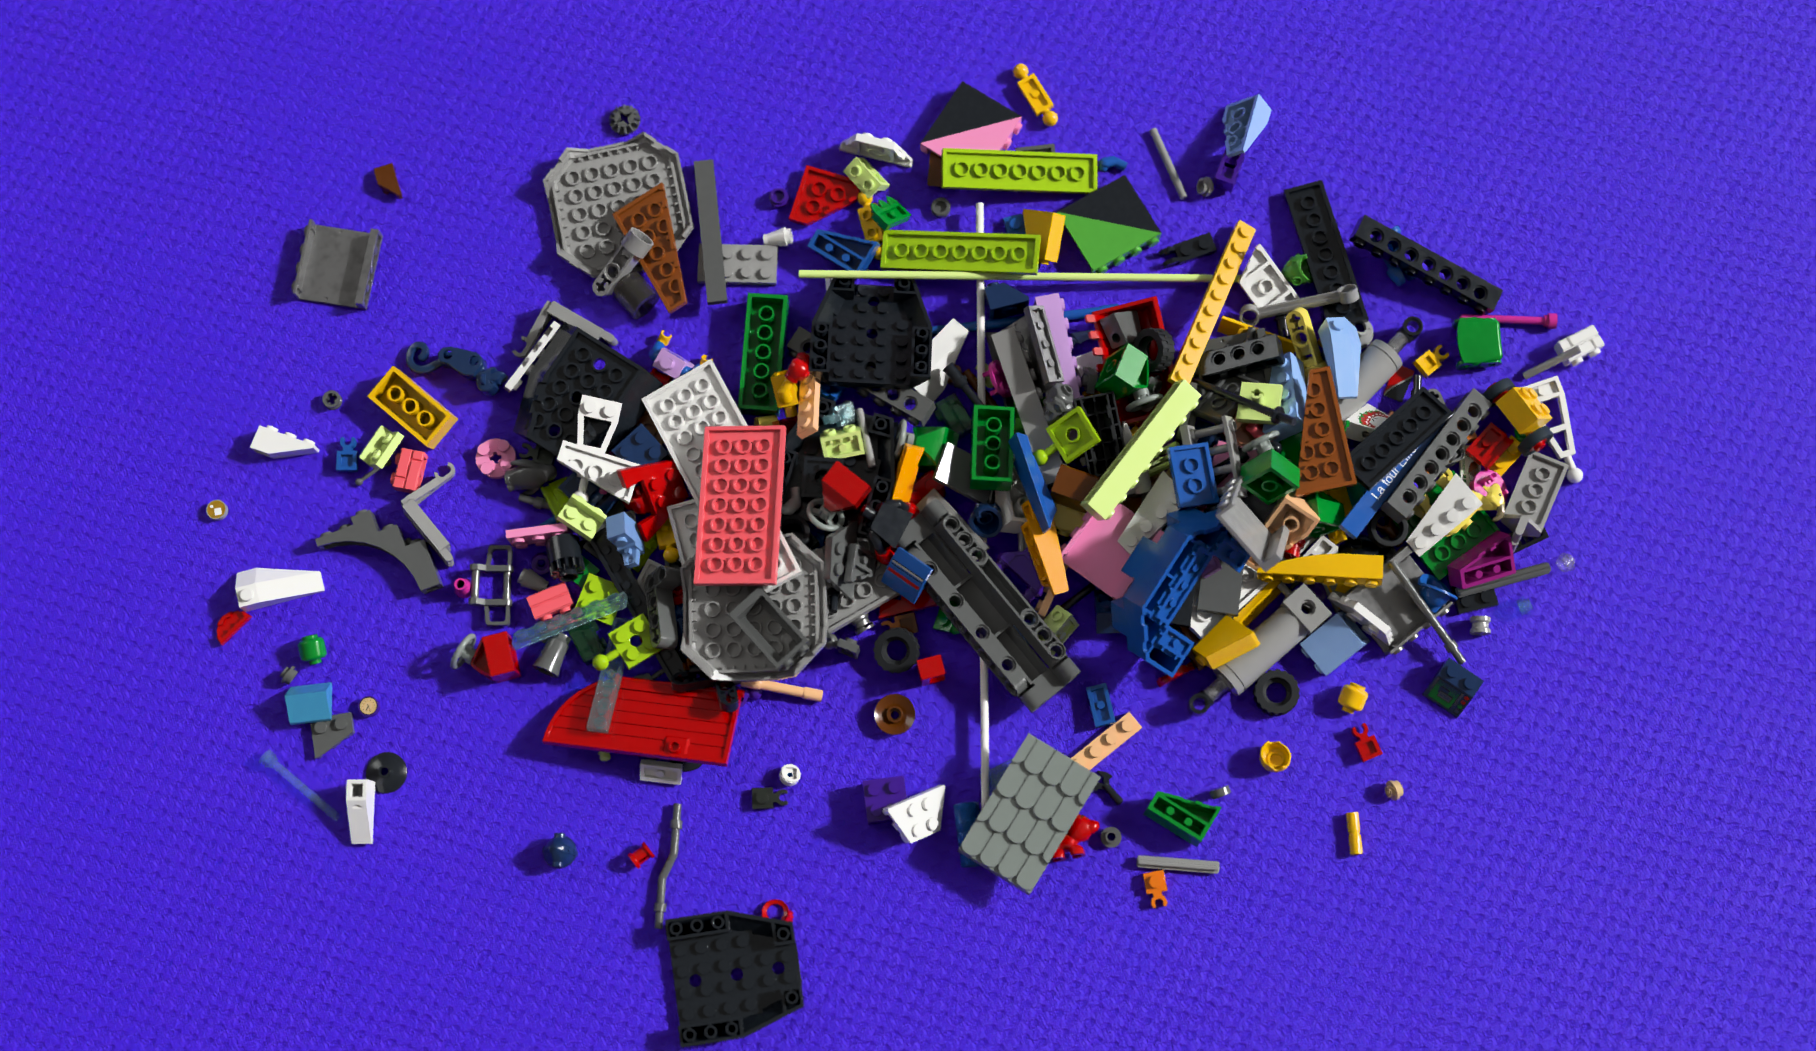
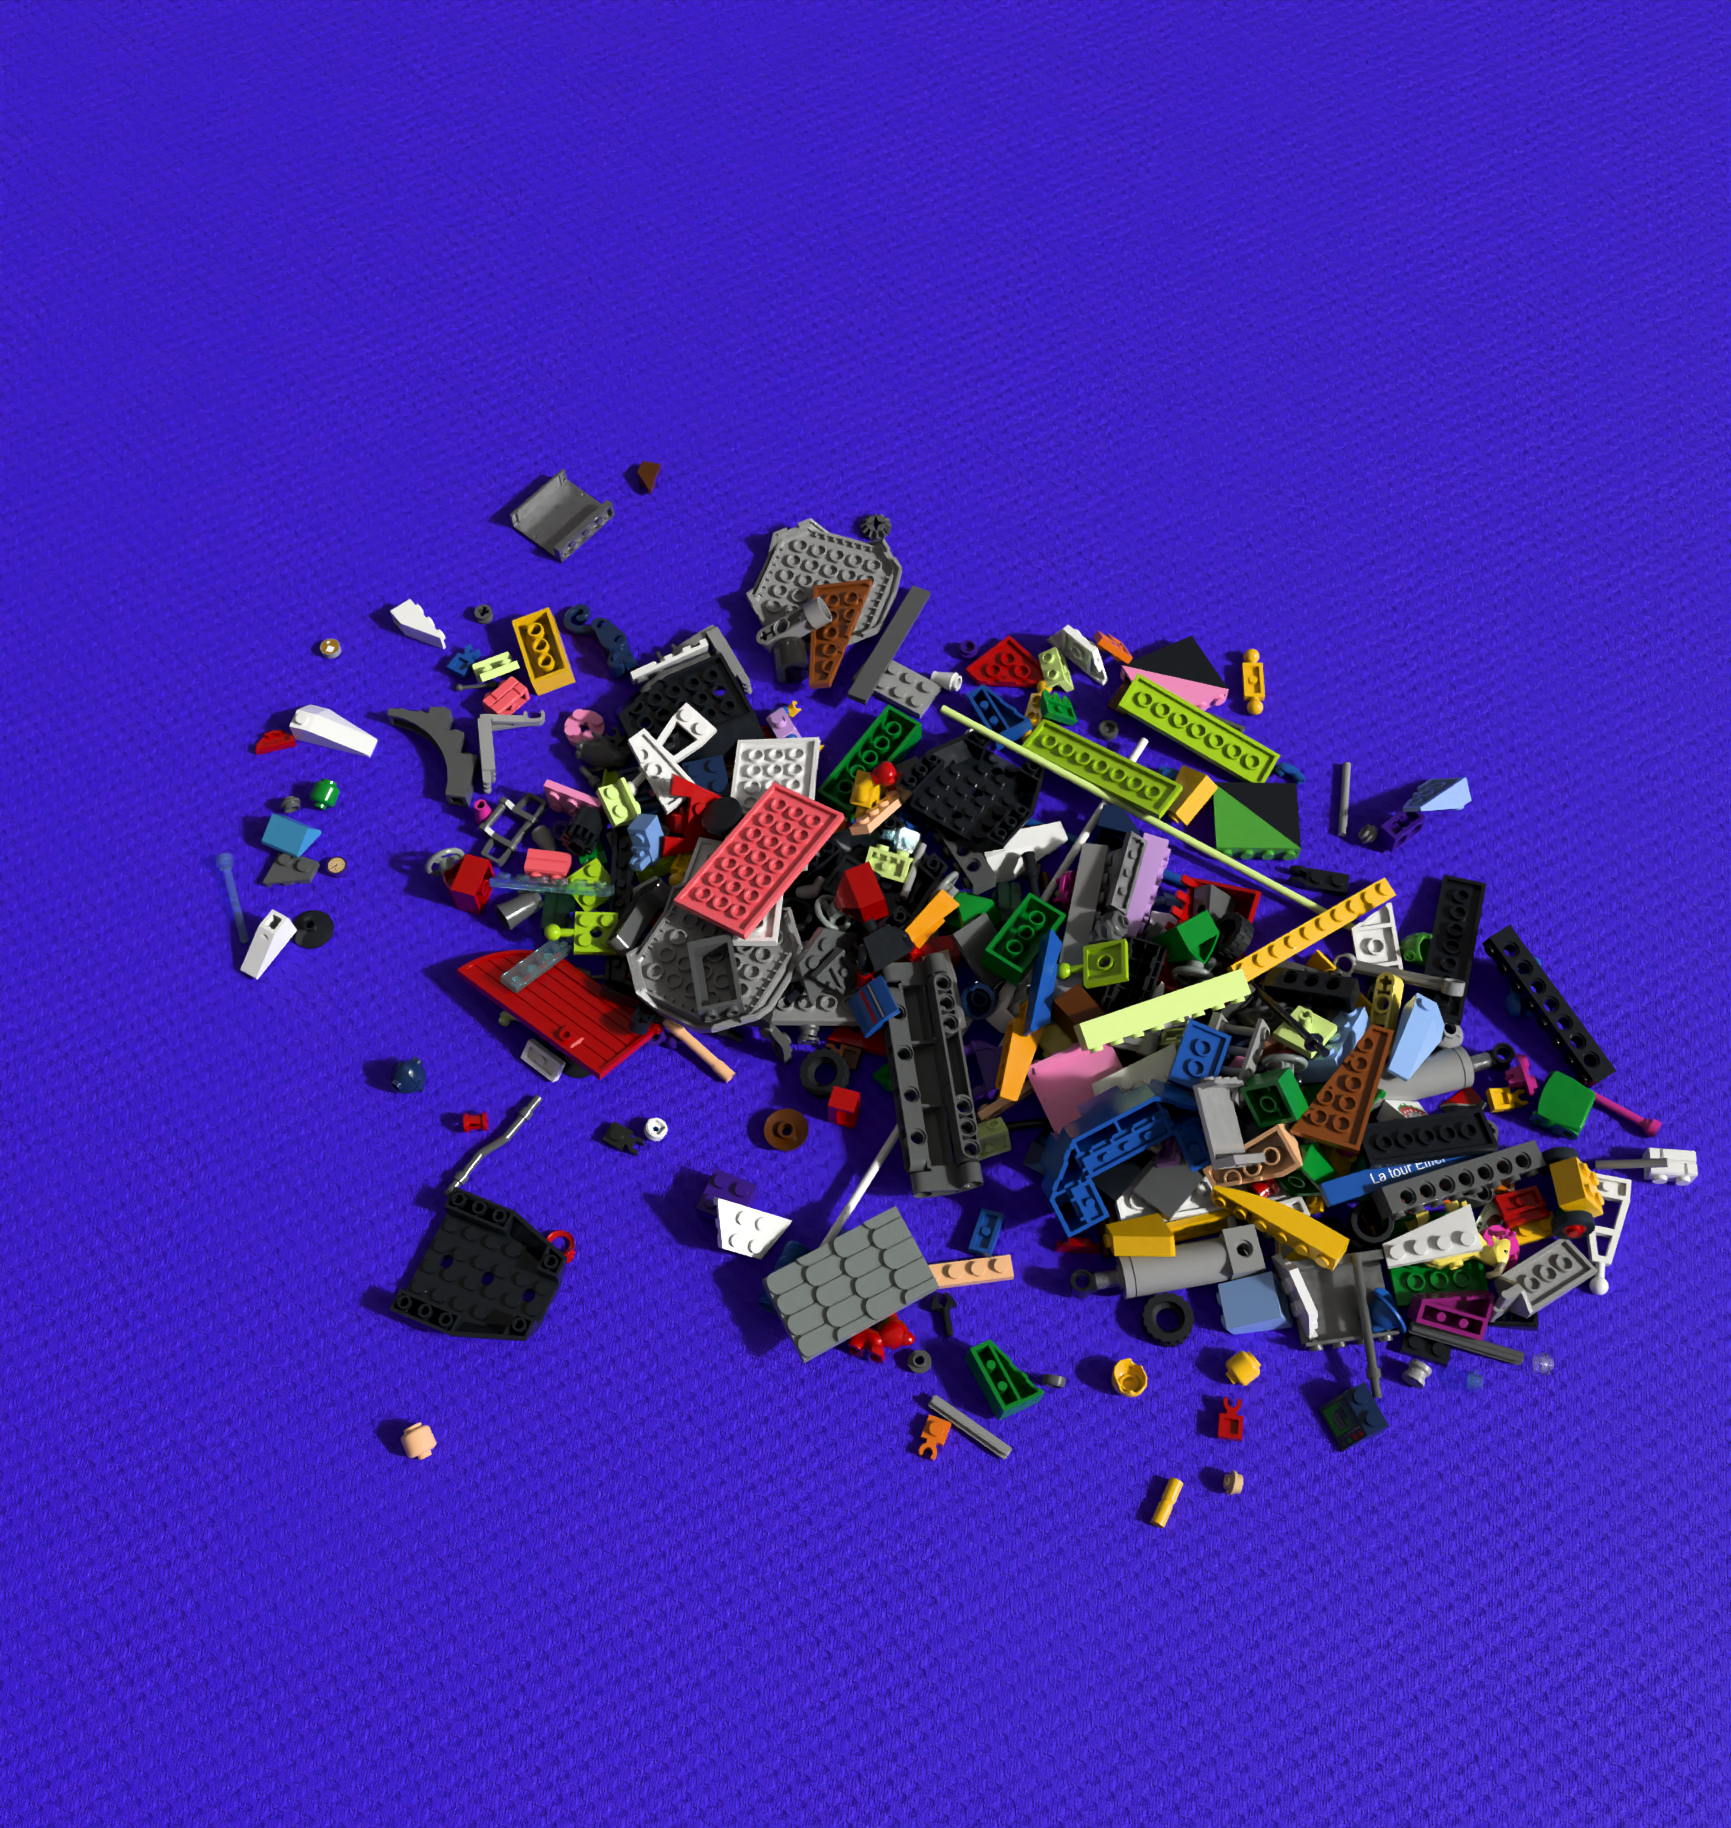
camera: 30 degrees right, 15 degrees down
(679, 481) = (722, 816): none -> black tile
(904, 129) = (1113, 645): none -> orange plate
(1434, 336) = (1519, 1076): none -> dark pink plate

